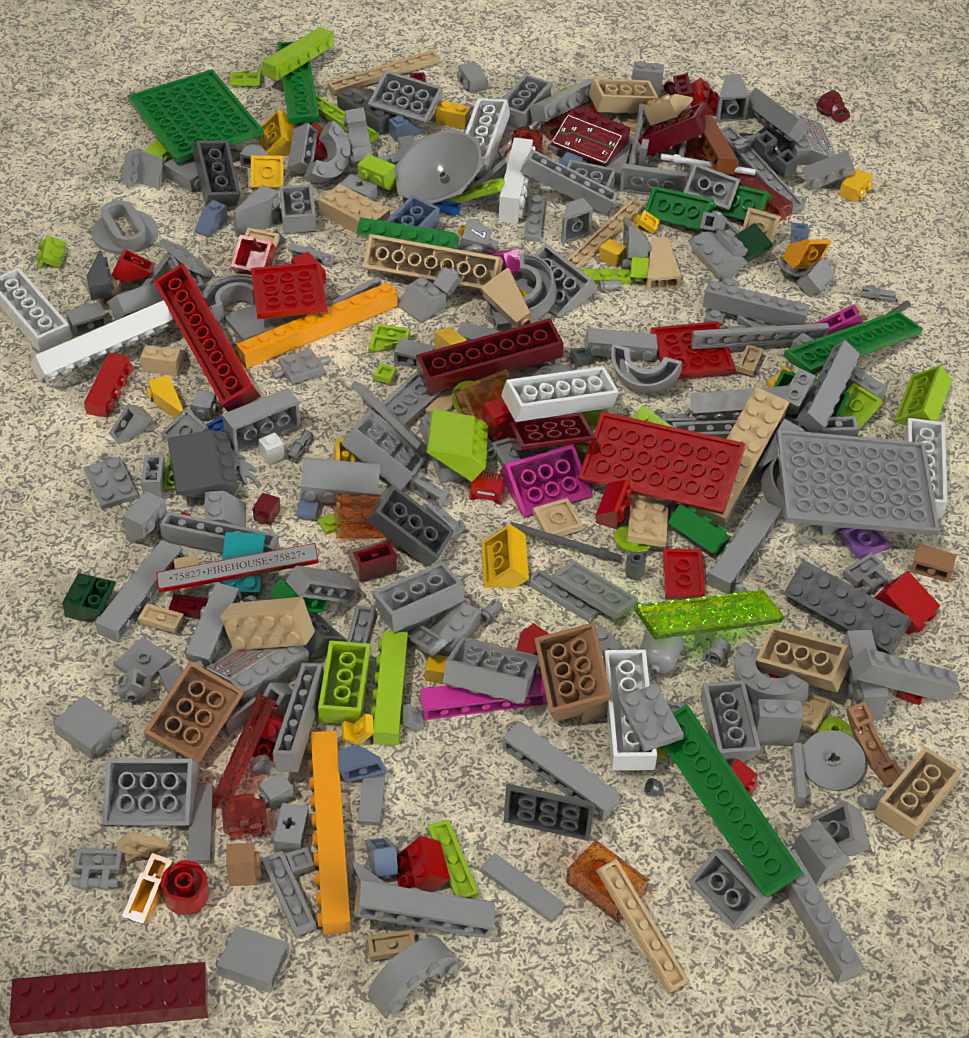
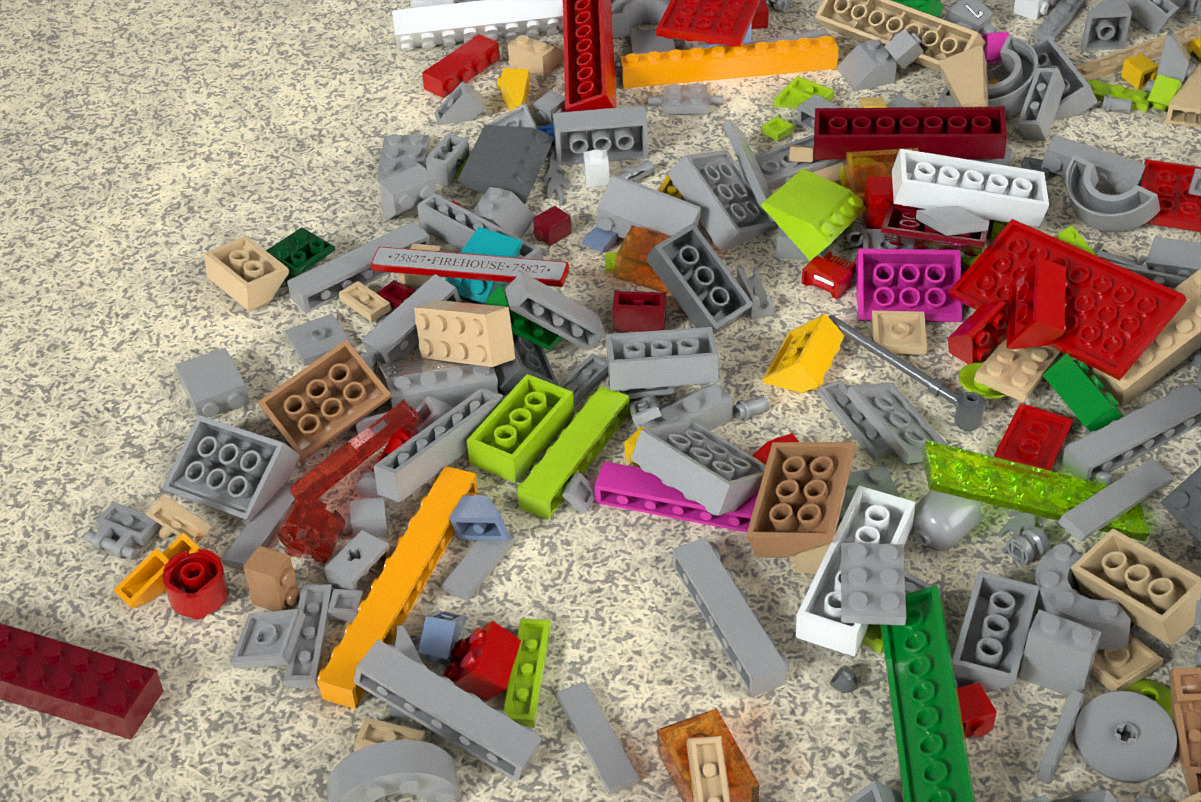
camera: 30 degrees right, 5 degrees down
(54, 625) = (245, 272): none -> tan slope
(133, 685) = (286, 356): light grey brick -> none
(252, 959) = (219, 692): light grey brick -> none
(263, 906) = (268, 639): none -> light grey tile
(358, 732) = (503, 486): yellow bracket -> none
(417, 391) = (801, 153): none -> tan slope
(428, 491) = (753, 256): light grey hinge -> none
(549, 812) = (679, 655): dark grey slope -> none
(563, 425) = (952, 220): none -> light grey tile
(565, 303) = (1041, 104): none -> light grey brick
(649, 476) = (1037, 305): none -> red slope
(757, 601) = (1115, 500): none -> light grey tile

